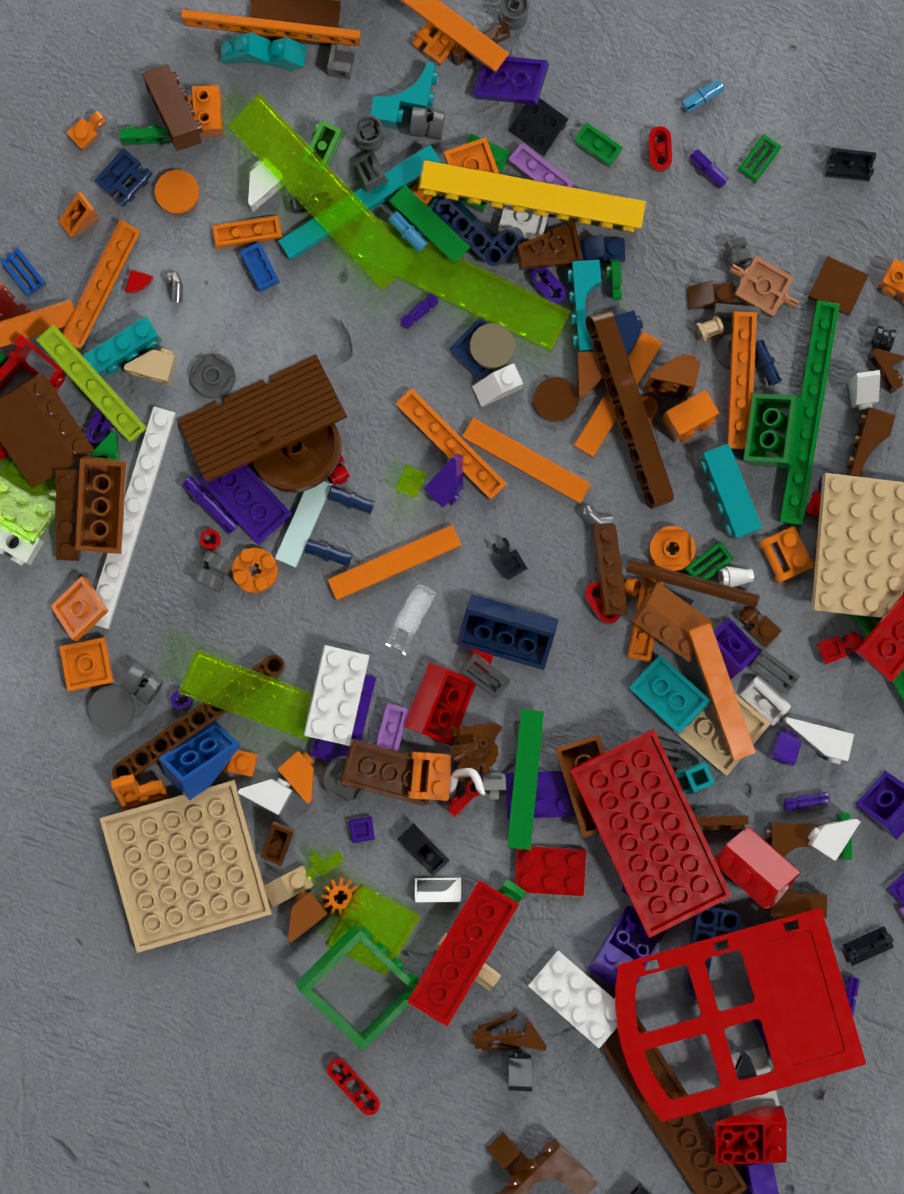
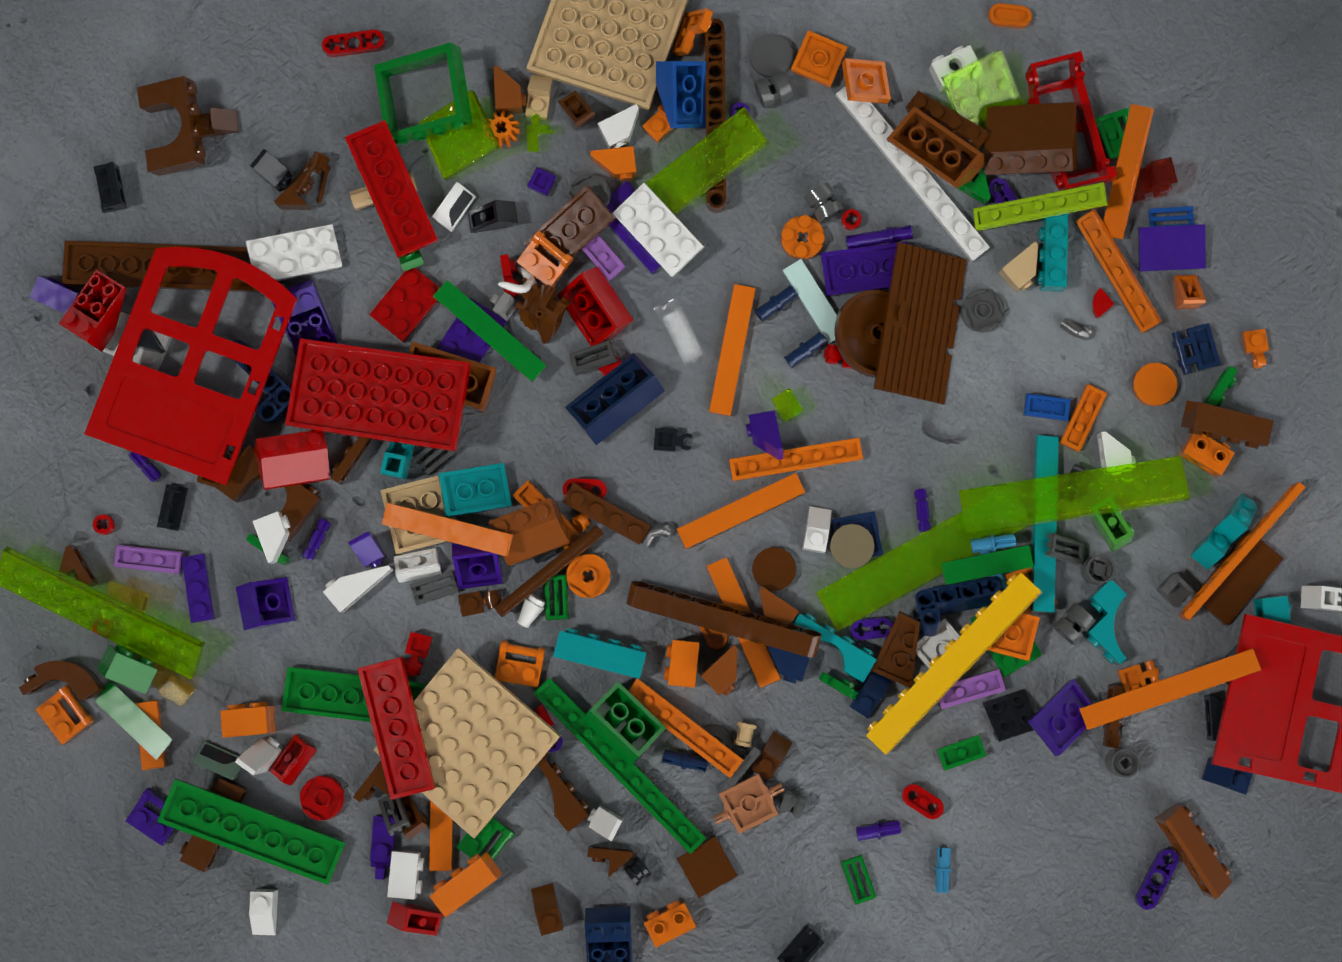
camera: 130 degrees right, 0 degrees up
(49, 254) = (1171, 248): none -> dark purple tile

